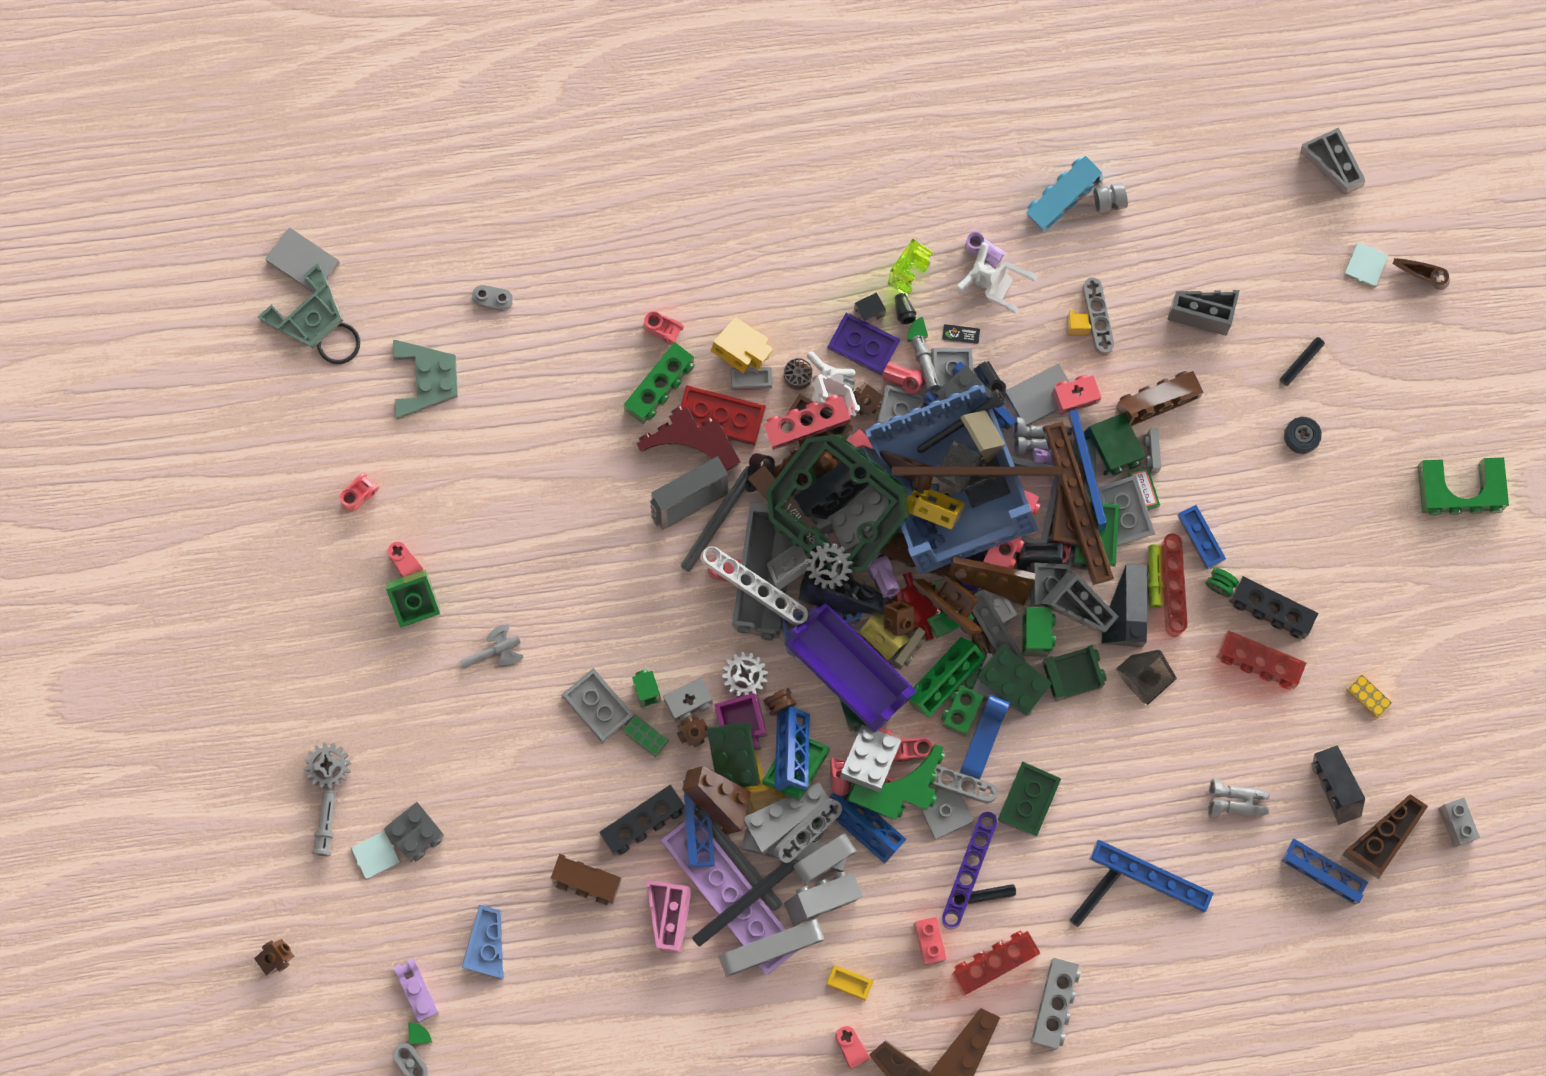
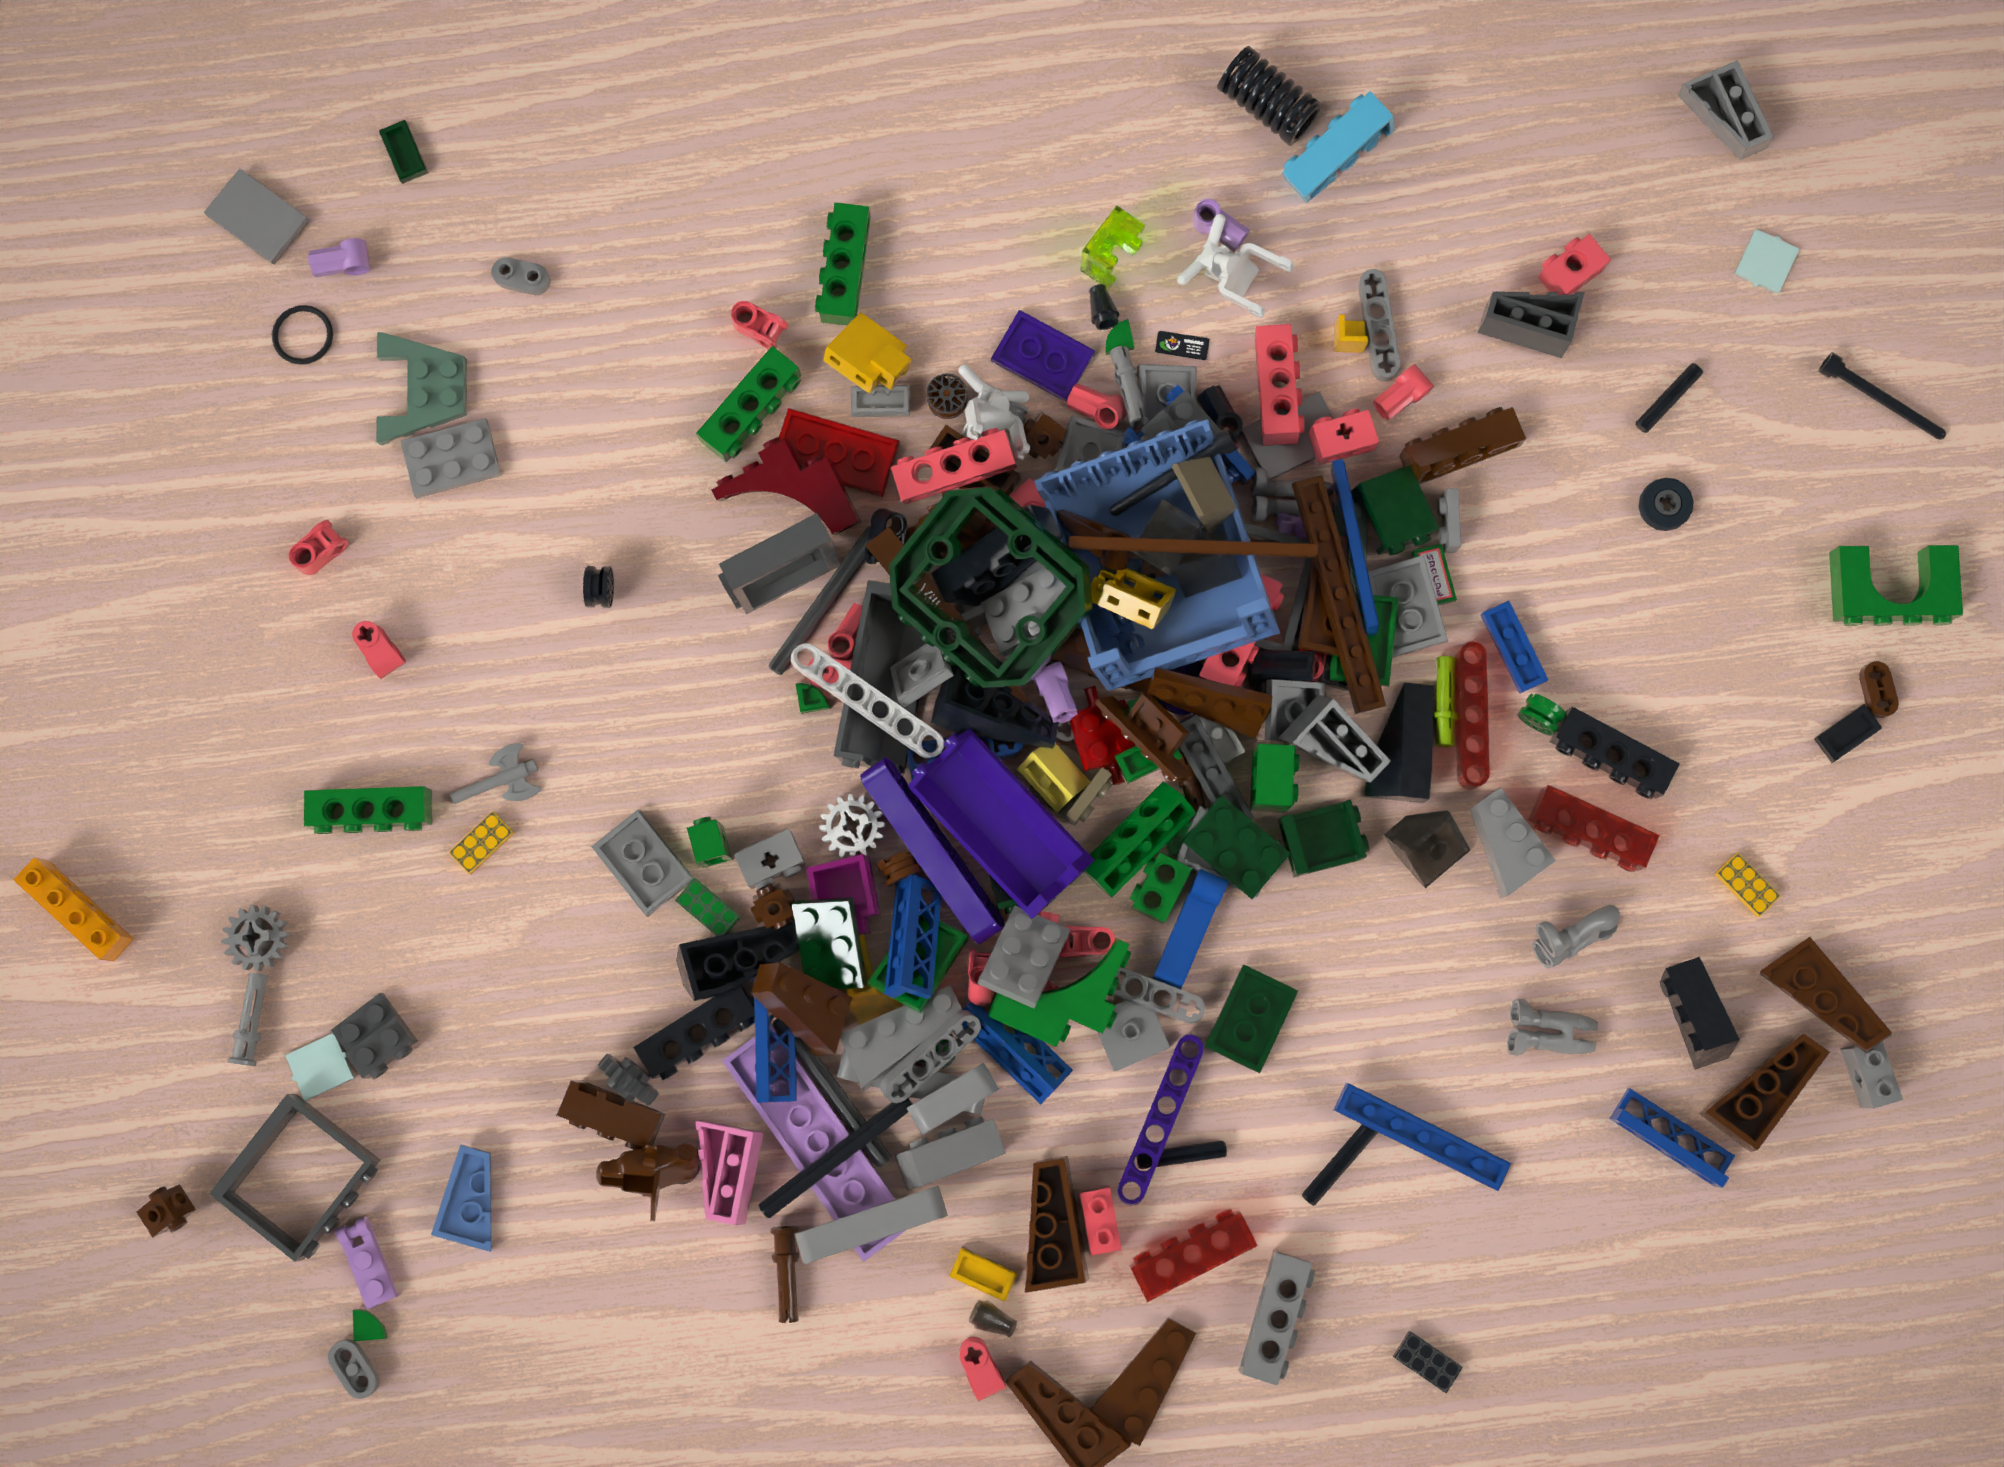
camera: 10 degrees right, 5 degrees up
(197, 750) = (73, 909): none -> light orange brick
(313, 318) = (267, 296): sand green wing -> none
(335, 912) = (225, 1189): none -> dark grey window
(369, 288) = (347, 258): none -> lavender piece
(369, 669) = (321, 803): none -> green brick
(404, 212) = (403, 151): none -> dark green tile
(413, 598) = (384, 703): green brick -> none
(448, 426) = (451, 458): none -> light grey plate
(483, 695) = (481, 842): none -> yellow tile
(556, 513) = (598, 586): none -> black wheel
(597, 854) = (628, 1079): none -> dark grey gear
(615, 916) = (650, 1170): none -> reddish brown piece
(663, 769) = (726, 961): none -> black wedge
(711, 587) = (810, 699): none -> green tile
(711, 975) = (785, 1258): none -> reddish brown pin
(721, 314) = (843, 219): none -> green brick
(736, 539) = (846, 632): none -> coral piece
(802, 689) = (932, 850): none -> dark purple beam
(834, 573) = (981, 686): light grey gear -> none
(856, 1012) = (990, 1318): none -> clear smoke cone
(870, 307) = (1053, 303): black panel -> none
(898, 618) = (1073, 753): reddish brown brick -> none
(899, 953) = (1055, 1236): none -> reddish brown wedge
(1008, 164) = (1273, 86): none -> black piece
(1029, 329) = (1277, 428): none -> coral brick
(1112, 197) = (1403, 155): light grey wheel -> none
(1120, 359) = (1409, 388): none -> coral piece
(1161, 1031) = (1427, 1361): none -> black tile
(1204, 672) = (1509, 842): none -> light grey wedge
(1240, 264) = (1585, 254): none -> coral brick
(1245, 739) = (1556, 946): none -> light grey piece
(1414, 336) = (1836, 368): none -> black piece
(1422, 764) = (1824, 991): none -> reddish brown wing
(1424, 271) = (1852, 273): reddish brown piece -> none
(1435, 589) = (1848, 733): none -> black tile
(1459, 558) = (1880, 689): none -> reddish brown beam

